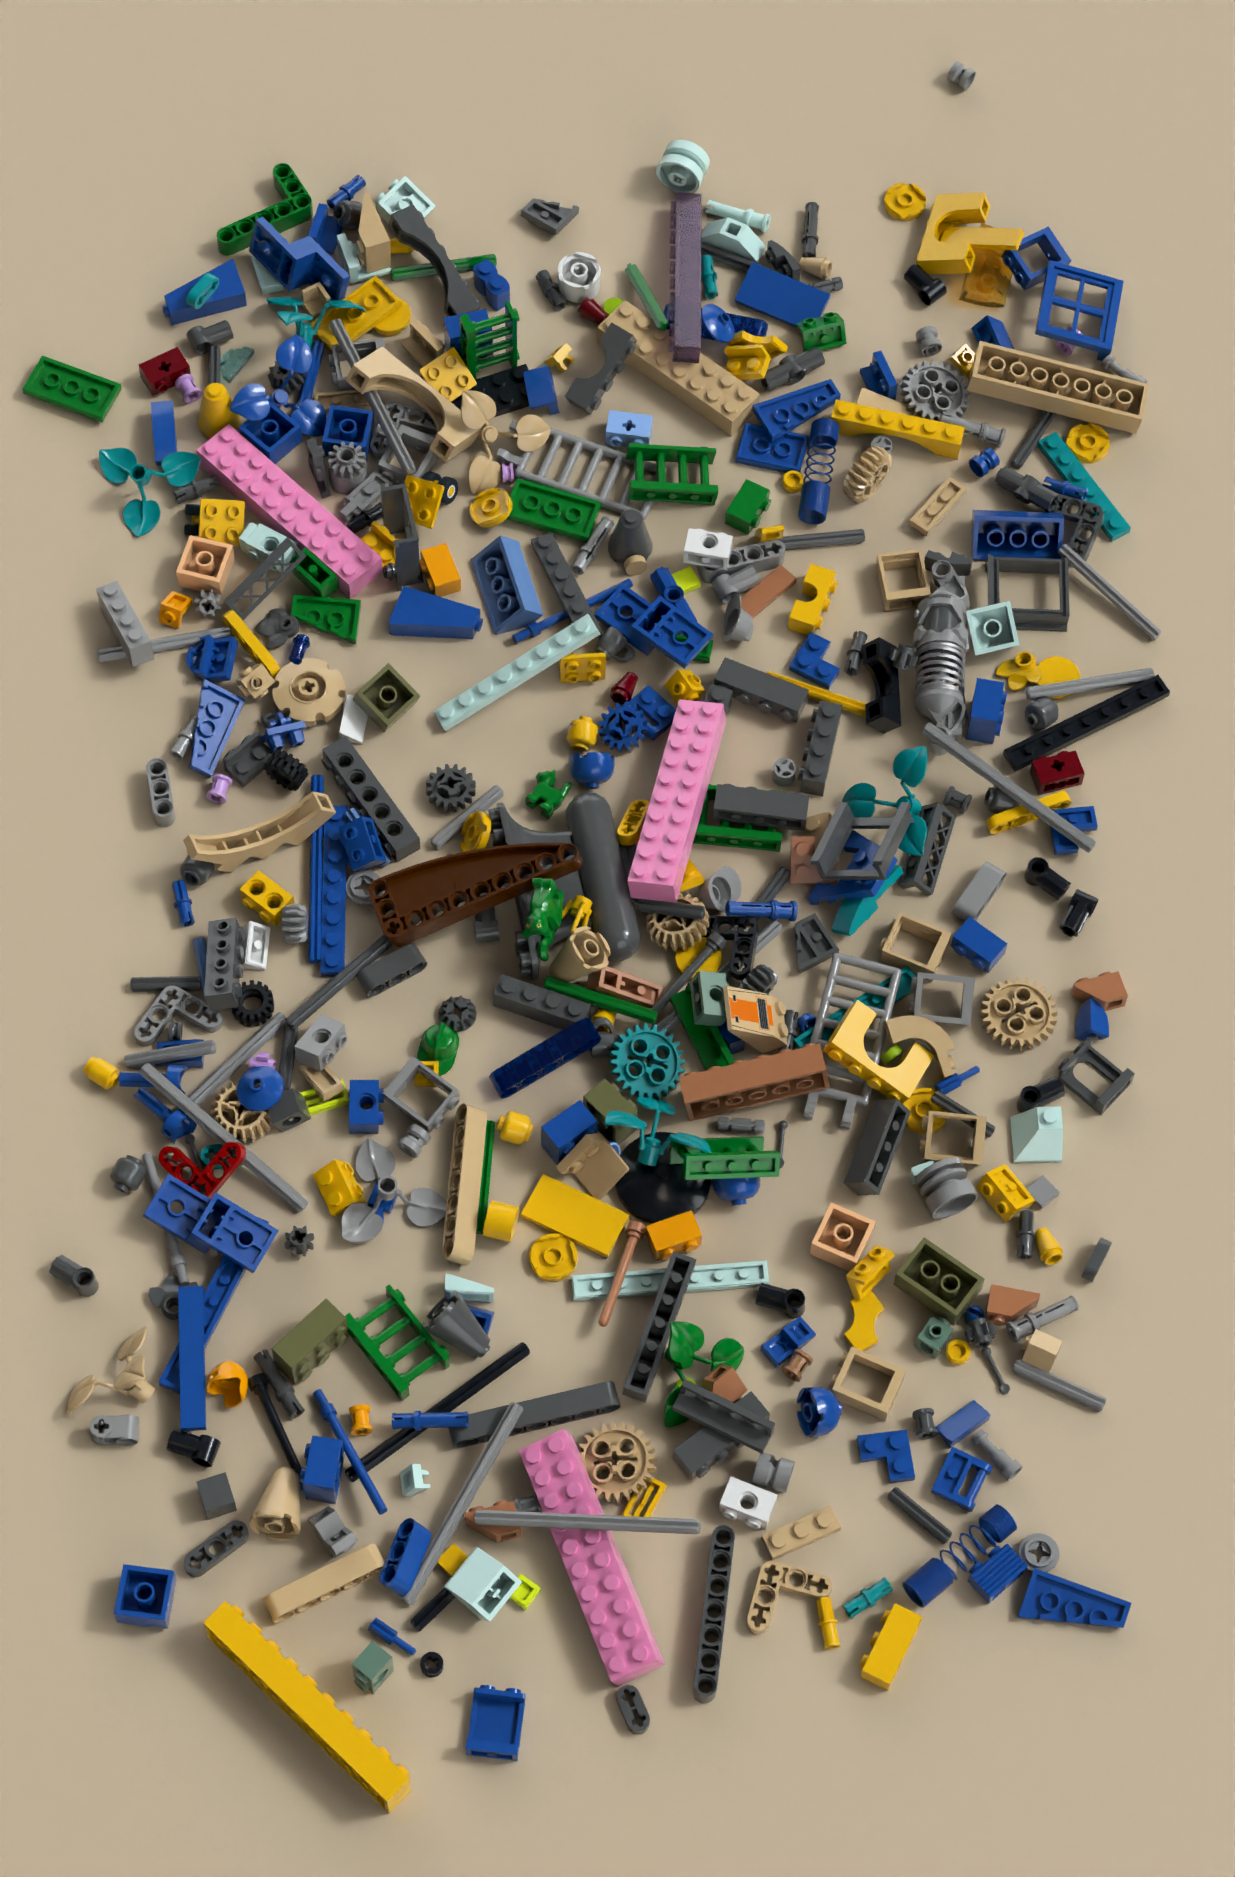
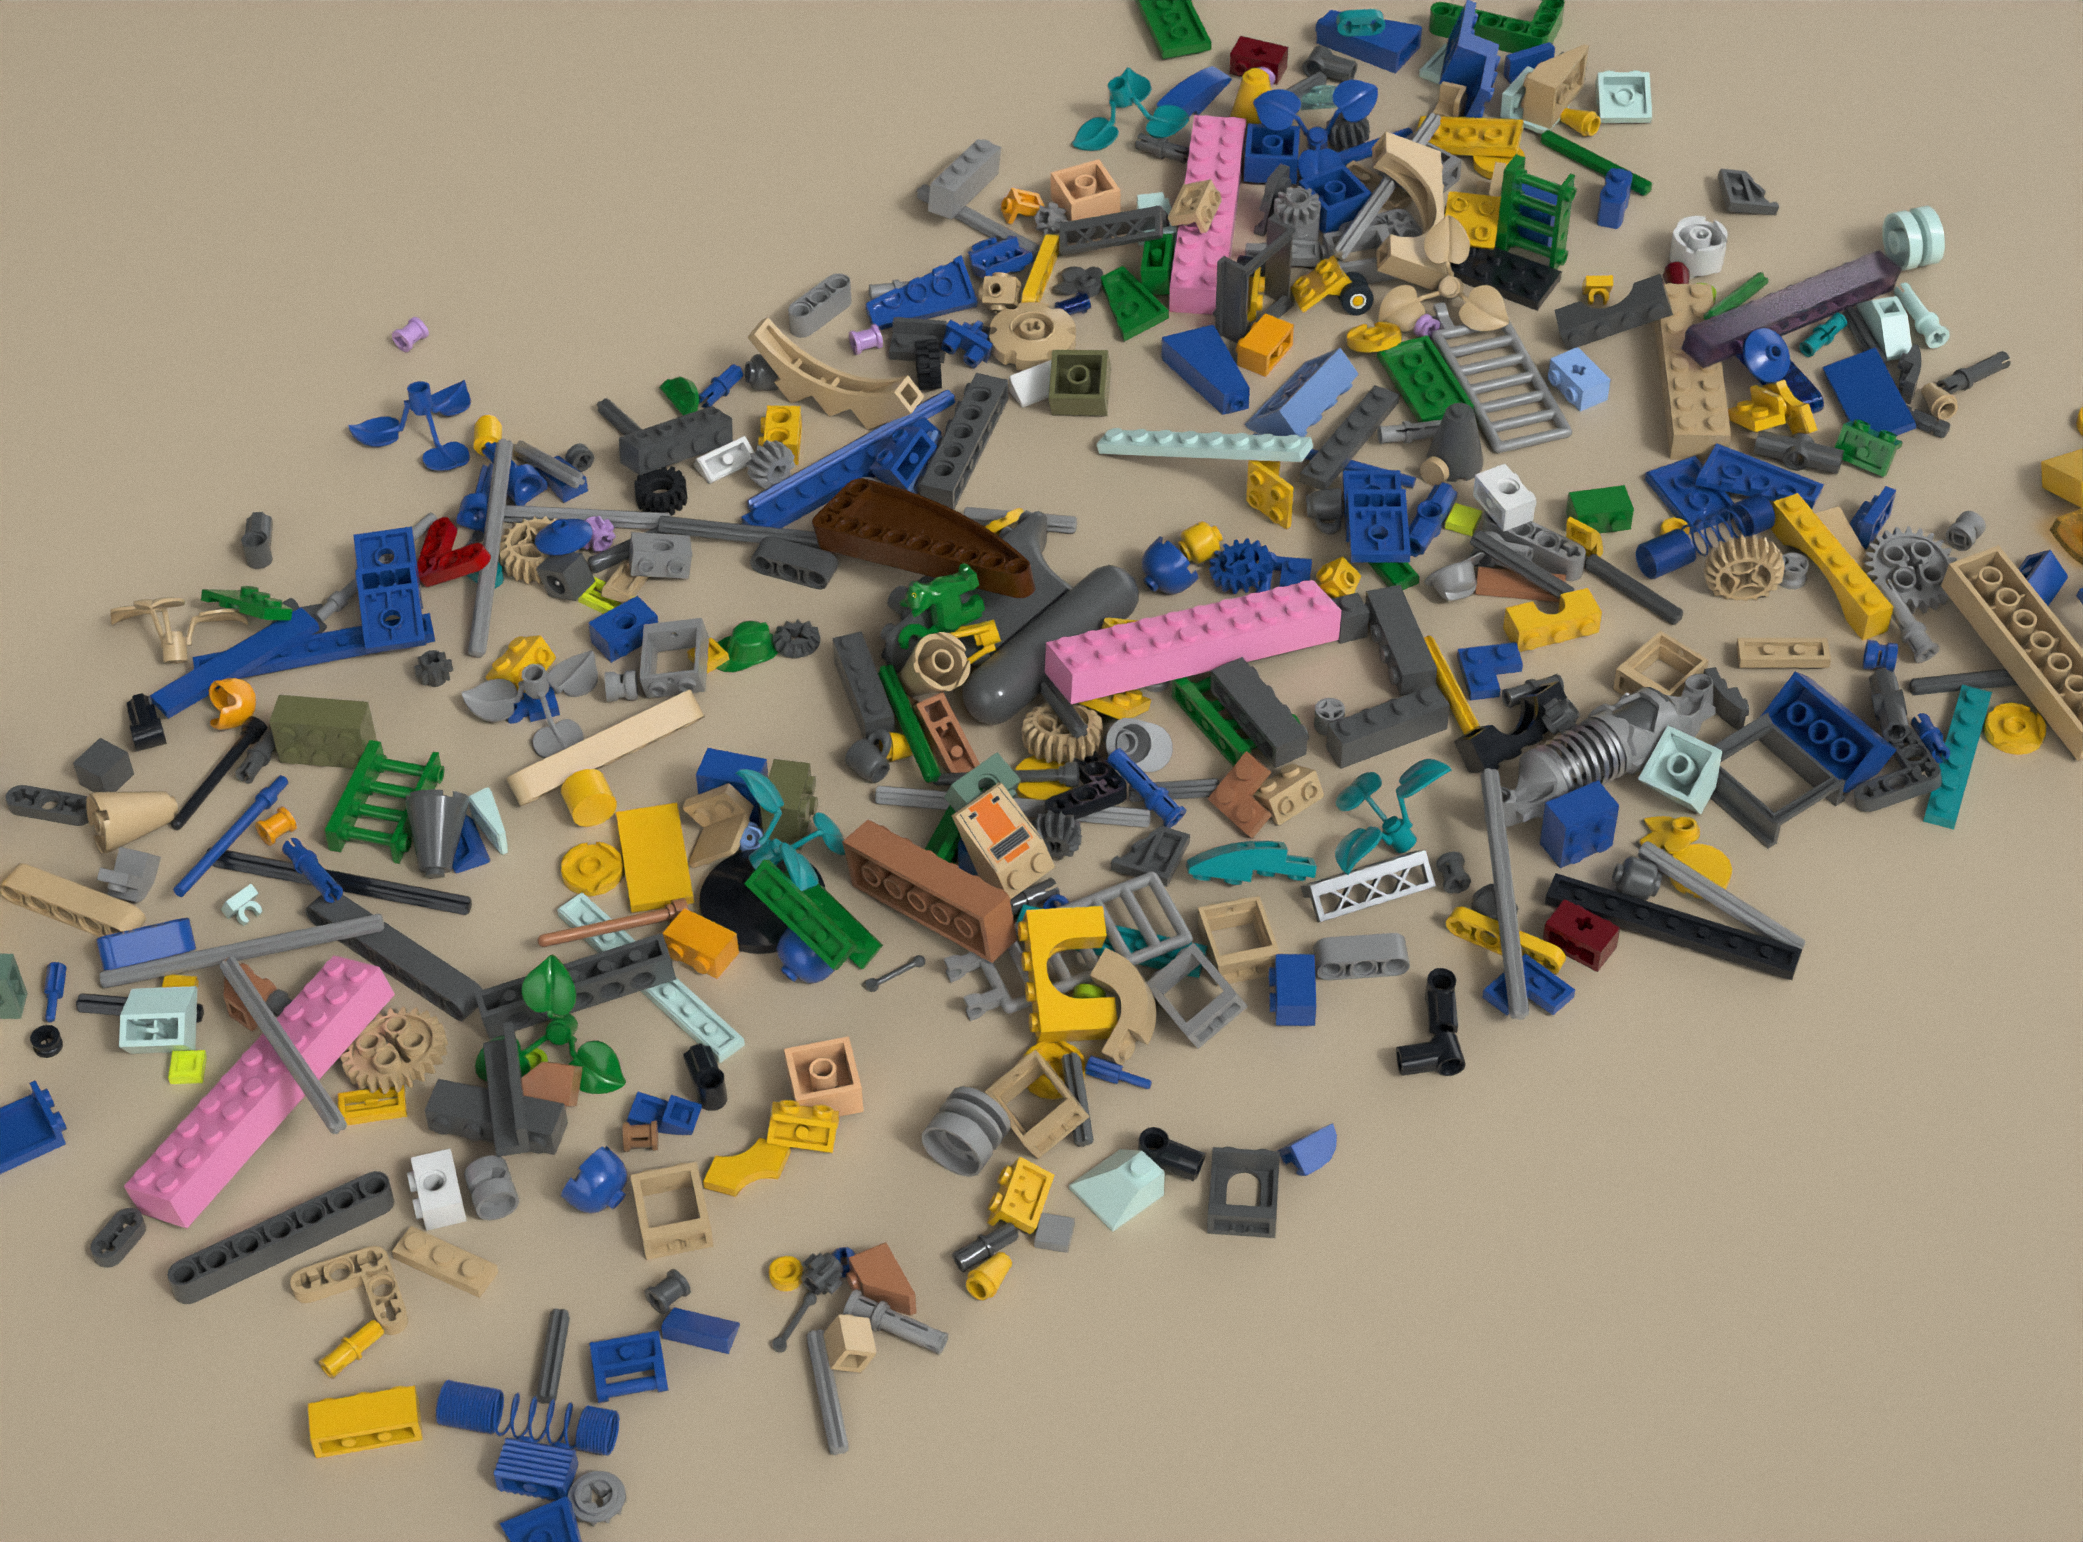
camera: 55 degrees right, 15 degrees down
(38, 1079) = (448, 402): none -> blue plant
(117, 1431) = (117, 657): light grey piece -> none
(128, 1174) = (396, 510): dark grey head -> none
(156, 1312) = (249, 602): none -> green wing
(170, 930) = (682, 394): none -> green plate
(176, 1007) = (608, 447): light grey beam -> none
(216, 520) = (1142, 173): yellow plate -> none
(296, 515) = (1197, 204): none -> tan bracket
(304, 329) = (1406, 113): teal plant -> none
(323, 1469) = (188, 821): blue brick -> none
(346, 191) = (1601, 60): blue pin -> none
(412, 231) = (1593, 109): dark grey arch -> none
(460, 782) = (1036, 487): dark grey gear -> none
(486, 1173) = (650, 753): green axle -> none
(514, 1127) = (700, 740): yellow head -> none
(541, 389) = (1545, 295): blue panel -> none
(545, 794) = (1105, 553): green animal -> none
(545, 1058) = (802, 720): clear blue beam -> none
(551, 290) = (1662, 243): dark grey pin -> none
(624, 688) = (1288, 544): dark red cone -> none
(650, 1041) = (902, 791): teal gear -> none
(666, 491) = (1559, 454): green fence -> none
(741, 1125) = (884, 925): light grey axle -> none
(762, 582) = (1520, 564): none -> dark grey axle
(839, 831) = (1297, 803): dark grey piece -> none
(853, 889) = (1262, 838): blue wing -> none
(867, 1597) = (410, 1366): teal pin -> none
(877, 1147) = (961, 1046): dark grey brick -> none
(891, 1447) = (614, 1284): blue plate -> none
(928, 288) = (2027, 491): black piece -> none
(932, 1343) = (782, 1236): sand green brick -> none
(938, 1281) = (848, 1195): olive brick -> none
(1006, 997) = (1248, 1067): tan gear -> none
(1009, 1467) = (681, 1403): light grey piece -> none
(1096, 1259) = (1014, 1330): dark grey beam -> none
(1105, 989) = (1358, 1136): nougat slope -> none
(1109, 592) = (1853, 849): light grey axle -> none

